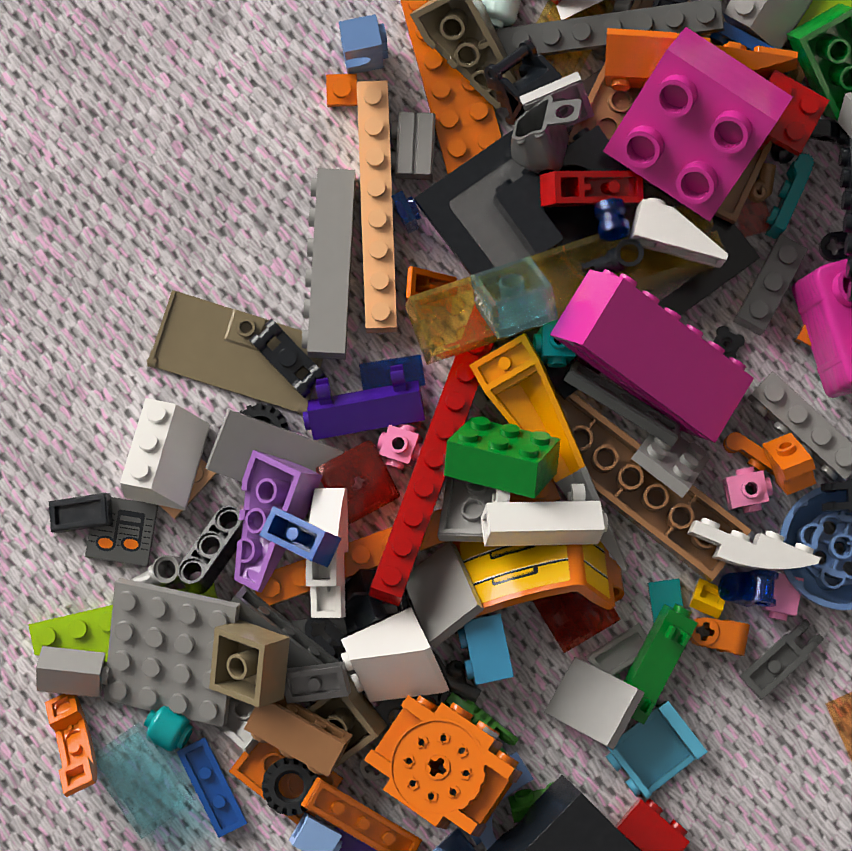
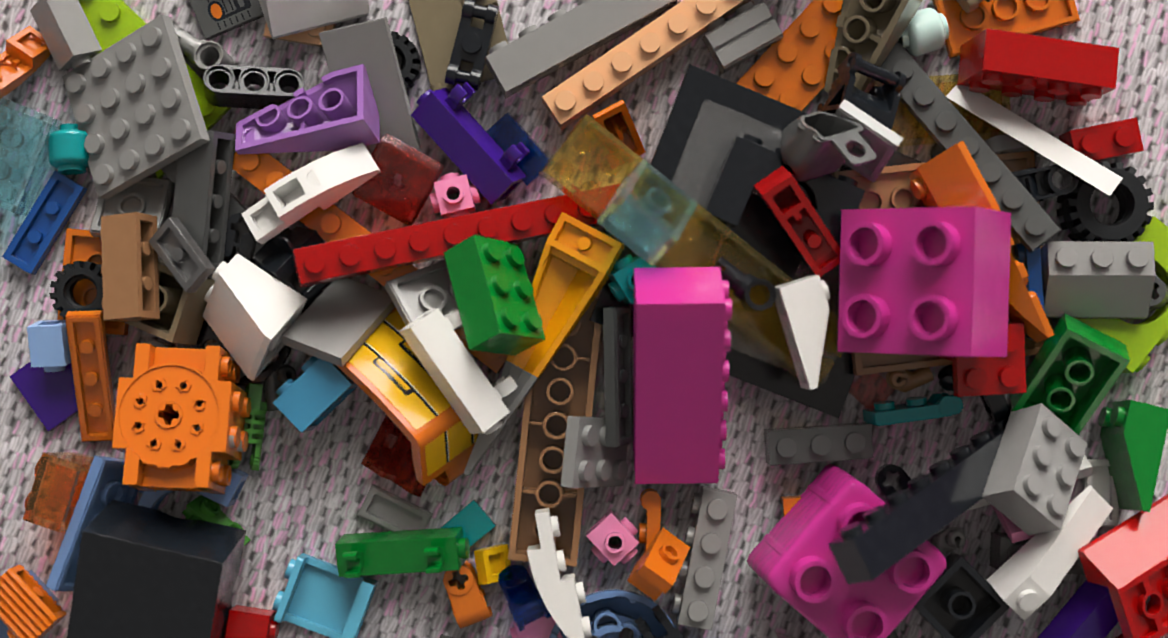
camera: 55 degrees right, 5 degrees up
(249, 663) = (157, 182): dark tan brick -> none
(300, 536) = (300, 155): blue brick -> none
(407, 211) = (674, 66): clear blue plate -> none
(594, 702) = (328, 520): light grey tile -> none
(611, 219) = (781, 258): clear blue wheel -> none
(734, 341) = (745, 443): black plate -> none

